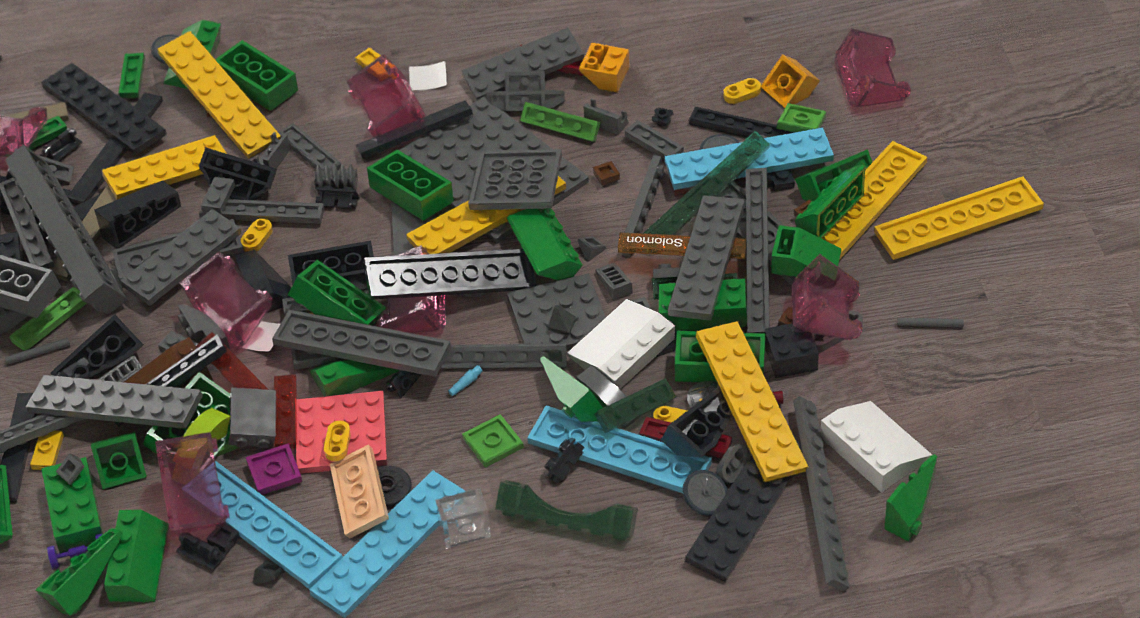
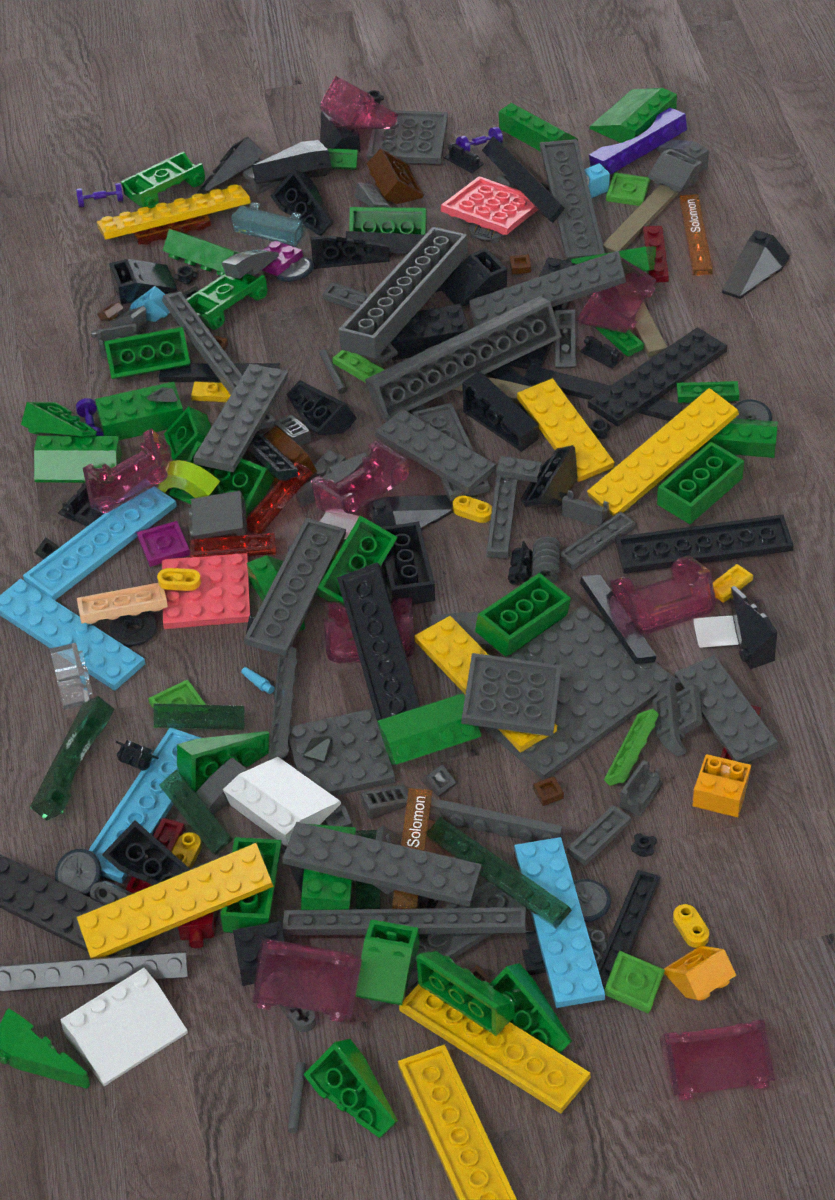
camera: 90 degrees right, 0 degrees up
(165, 144) = (600, 428): none -> black plate
(326, 80) = (704, 543): none -> black plate
(442, 43) = (754, 631): none -> black wedge
(516, 415) = (198, 716): none -> clear green plate
(916, 286) = (349, 1082): none -> green wedge

